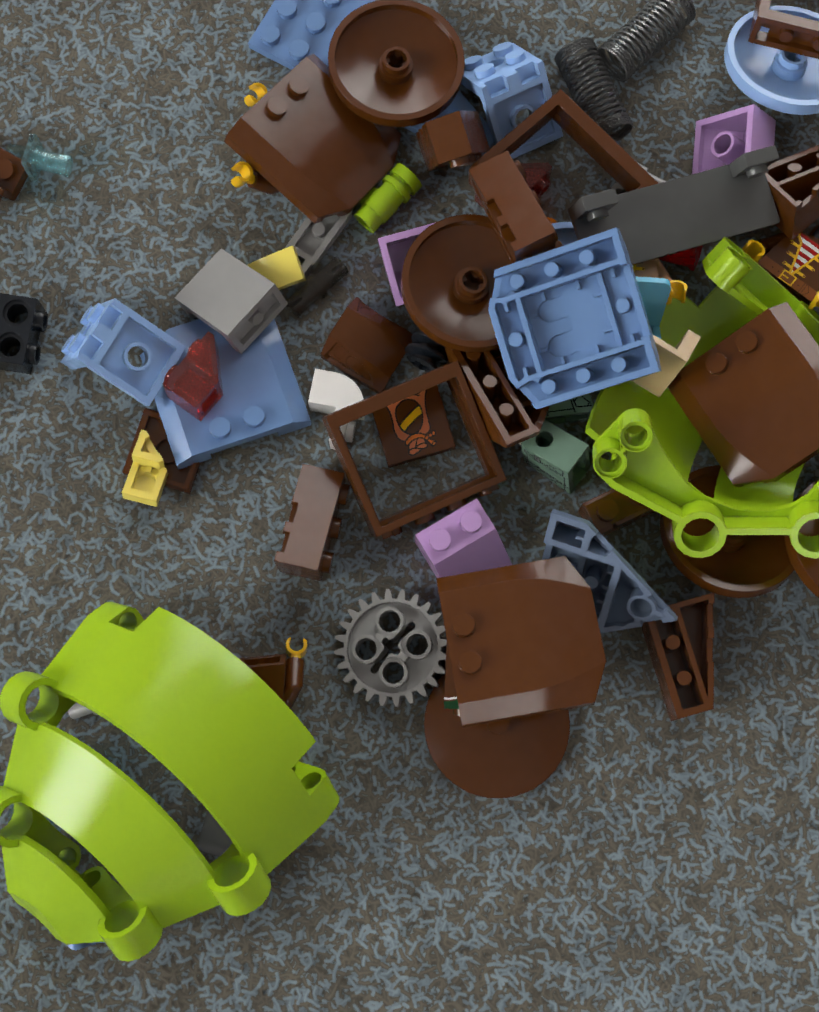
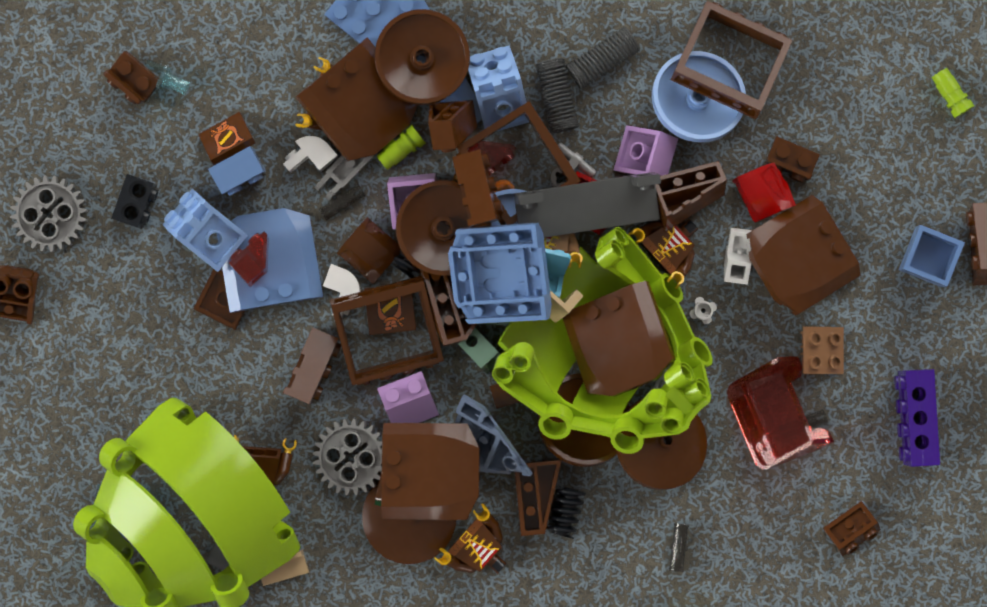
camera: 10 degrees right, 10 degrees up
(136, 223) = (226, 138): none -> reddish brown tile
(146, 474) = (209, 314): light yellow slope -> none
(157, 260) = (237, 170): none -> medium blue piece
(232, 299) = (282, 206): light grey panel -> none
(260, 219) = (313, 148): none -> white brick
(280, 268) = (316, 188): light yellow slope -> none
(329, 837) = (294, 567): none -> tan panel
(609, 749) = (476, 546): none -> torso
(733, 673) = (565, 512): none -> black piece

